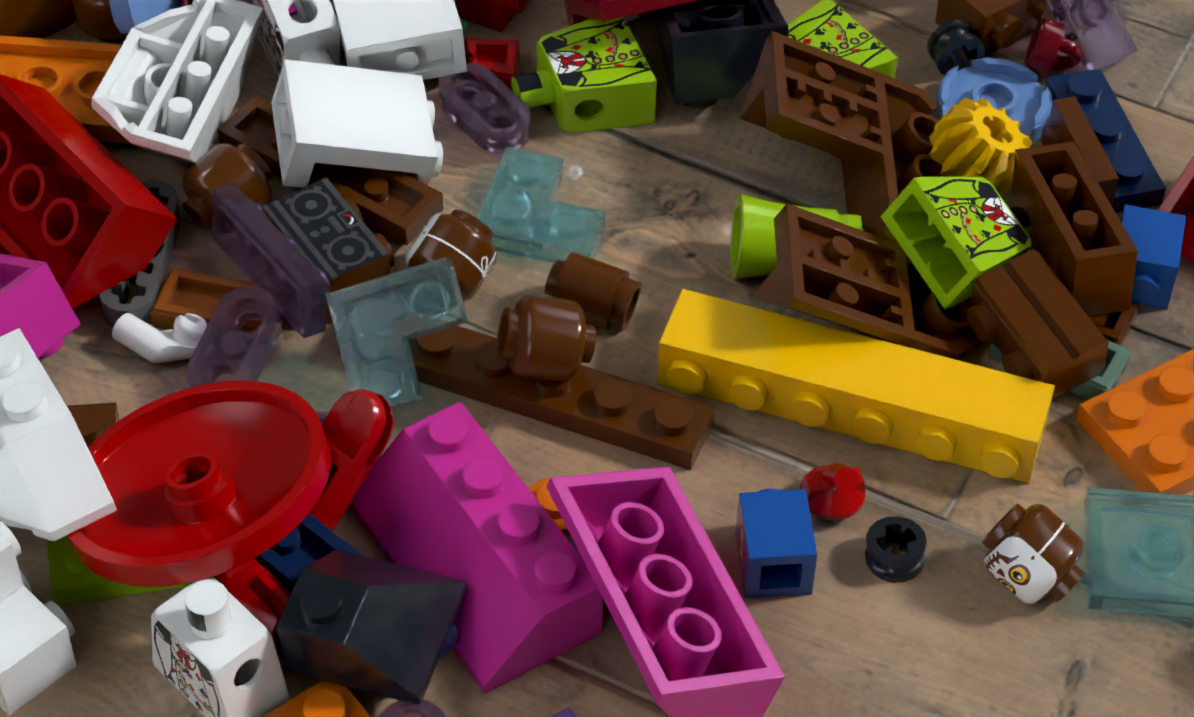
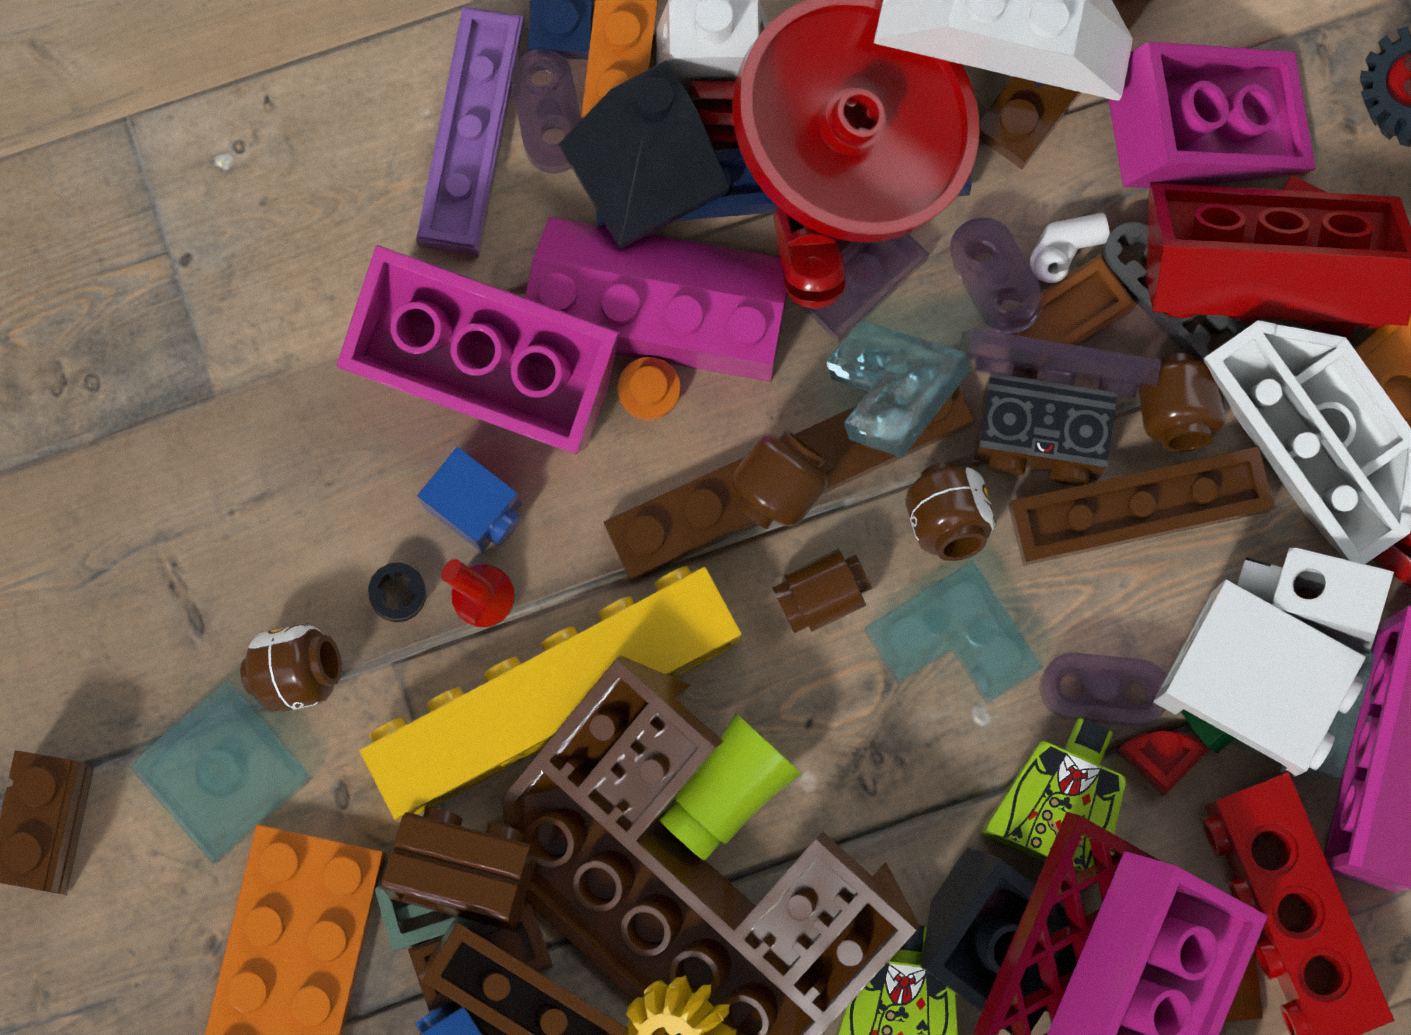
camera: 135 degrees right, 30 degrees up
(353, 121) = (1151, 544): white panel -> none
(956, 232) = (590, 903): lime torso -> none

